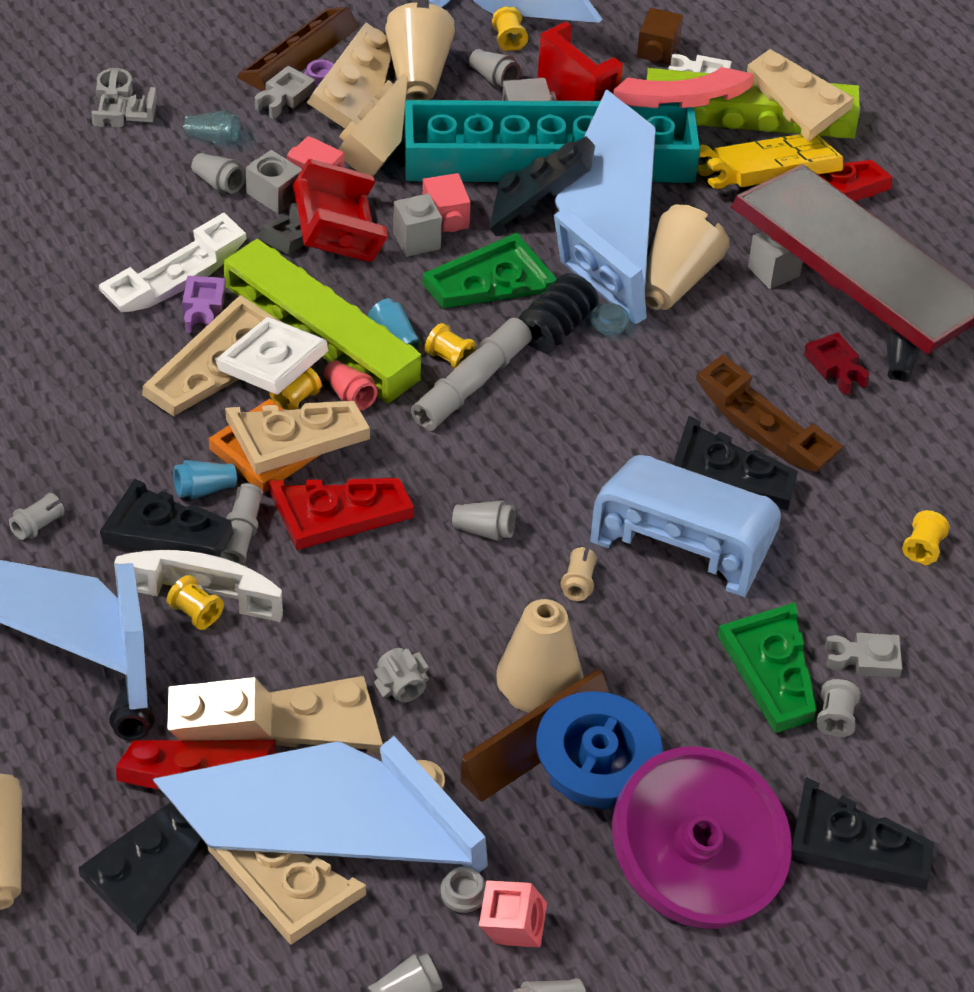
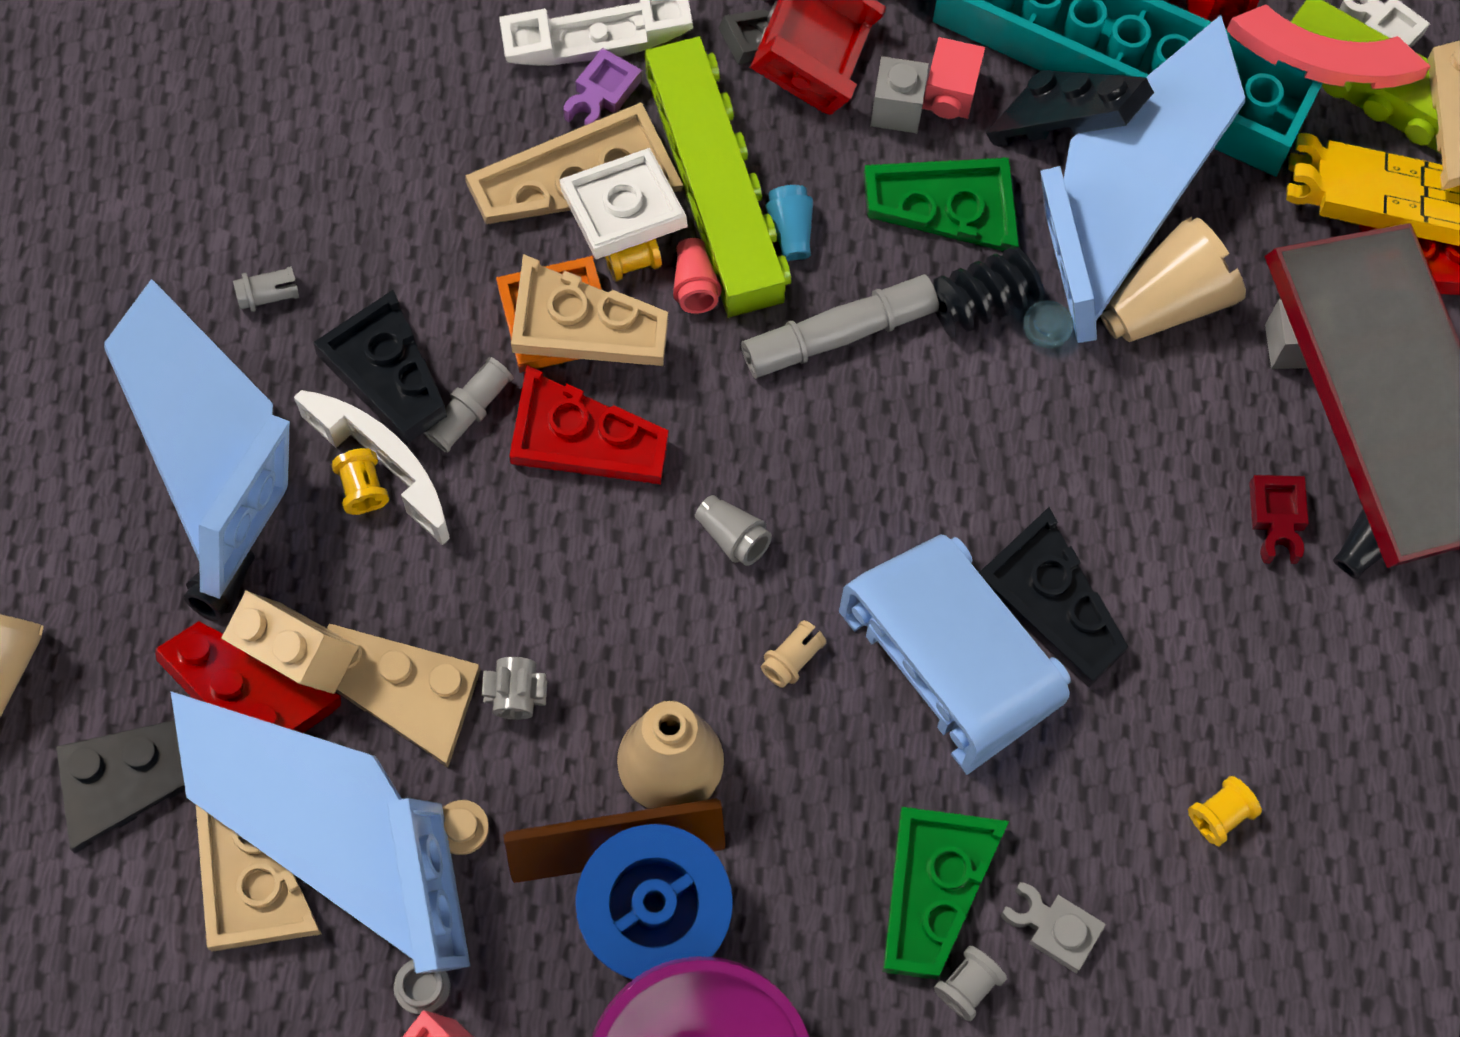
camera: 30 degrees right, 20 degrees up
(200, 478) = (462, 324): dark azure cone -> none
(449, 345) = (836, 277): yellow bush -> none
(758, 418) = (1139, 552): reddish brown slope -> none

